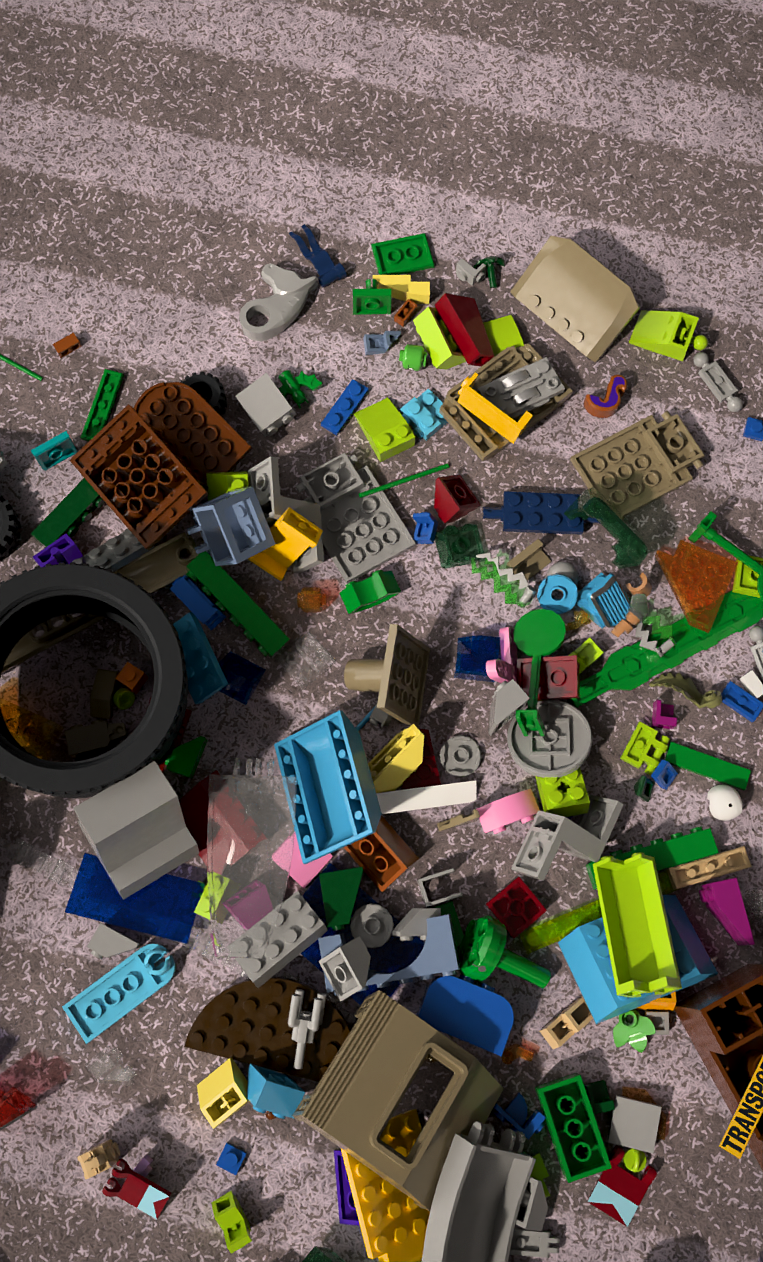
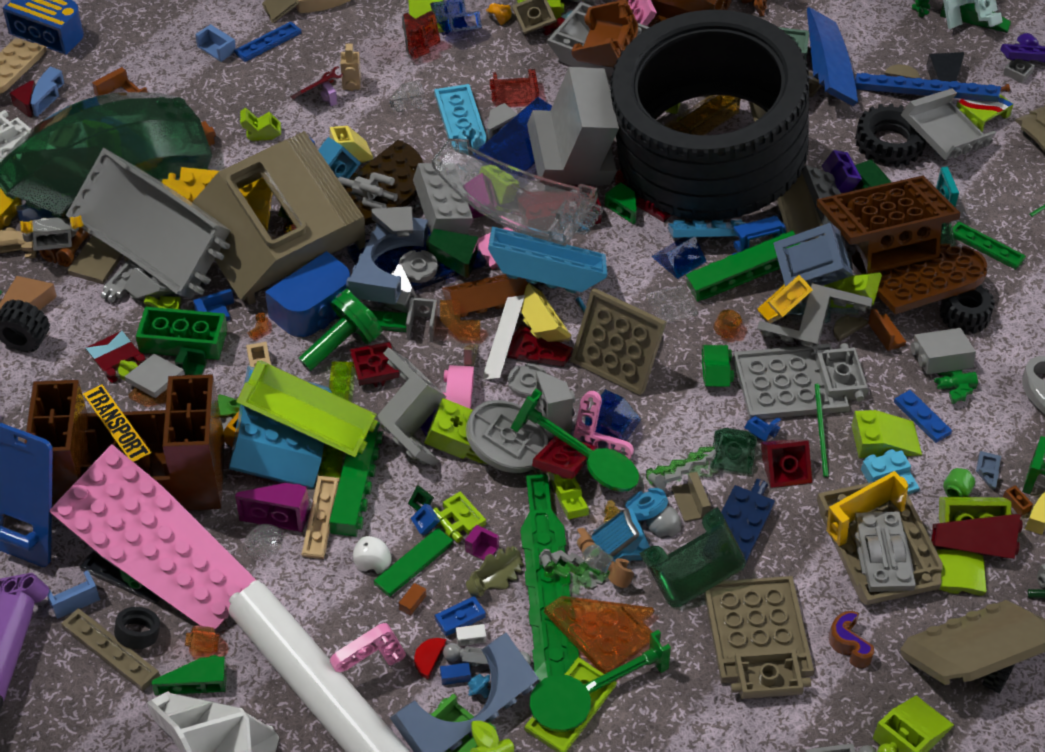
camera: 115 degrees right, 25 degrees down
(49, 950) = (514, 91): none -> clear red panel
(255, 457) = (886, 330): none -> dark orange panel
(426, 859) = (463, 329): none -> clear orange tile
(745, 748) = (412, 599): none -> dark orange piece

